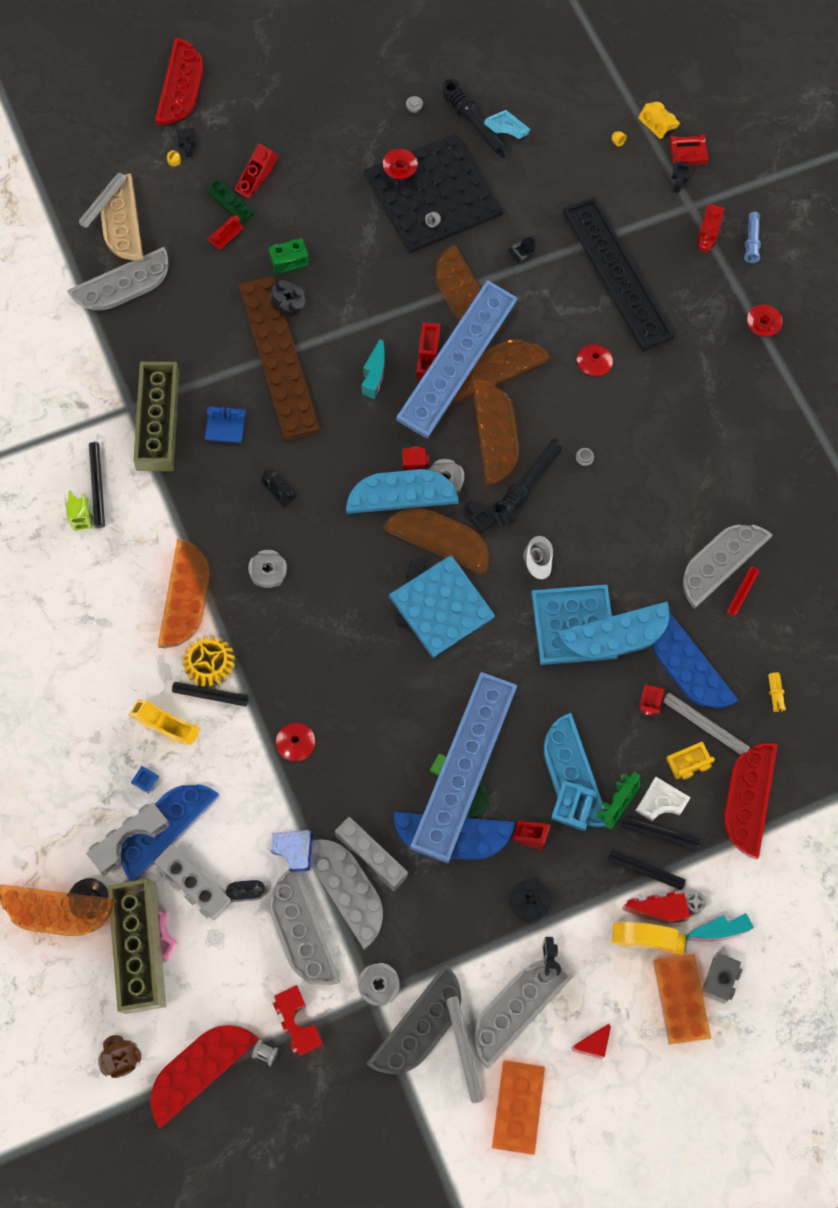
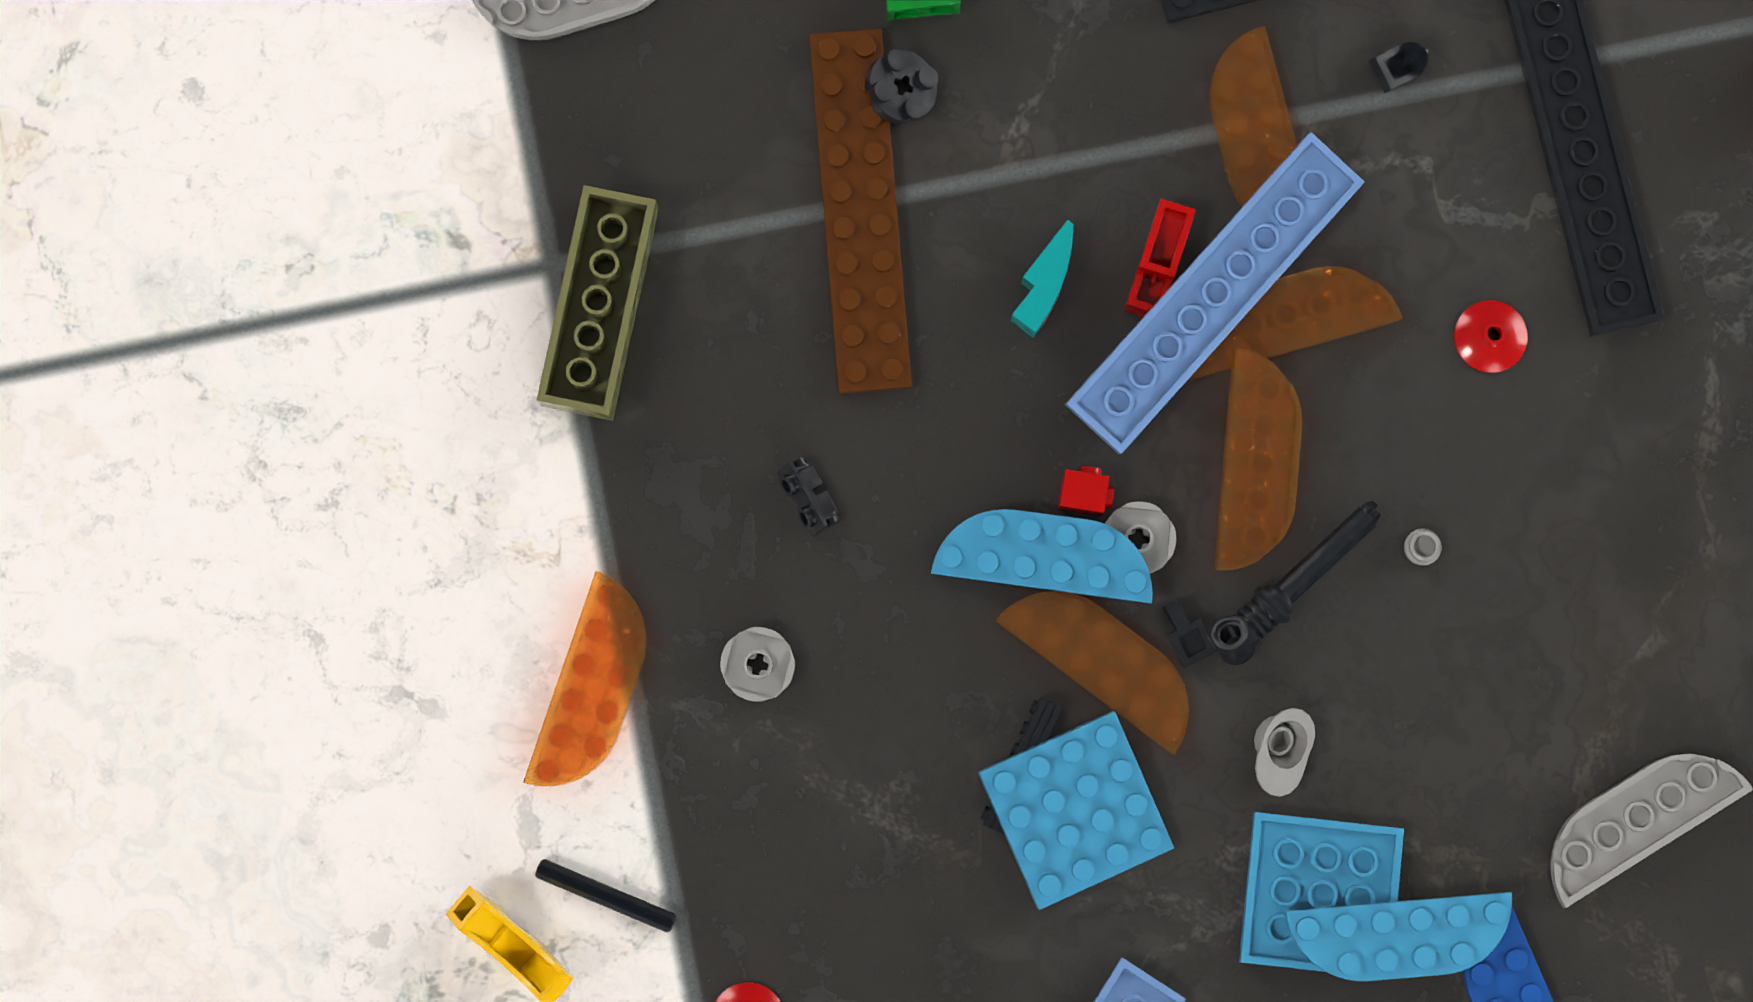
camera: 15 degrees right, 15 degrees up
(78, 512) = (415, 480): lime piece -> none
(96, 483) = (460, 421): black axle -> none
(215, 657) = (581, 840): yellow gear -> none
(225, 424) = (729, 340): blue hinge -> none
(743, 591) = (1665, 890): red axle -> none

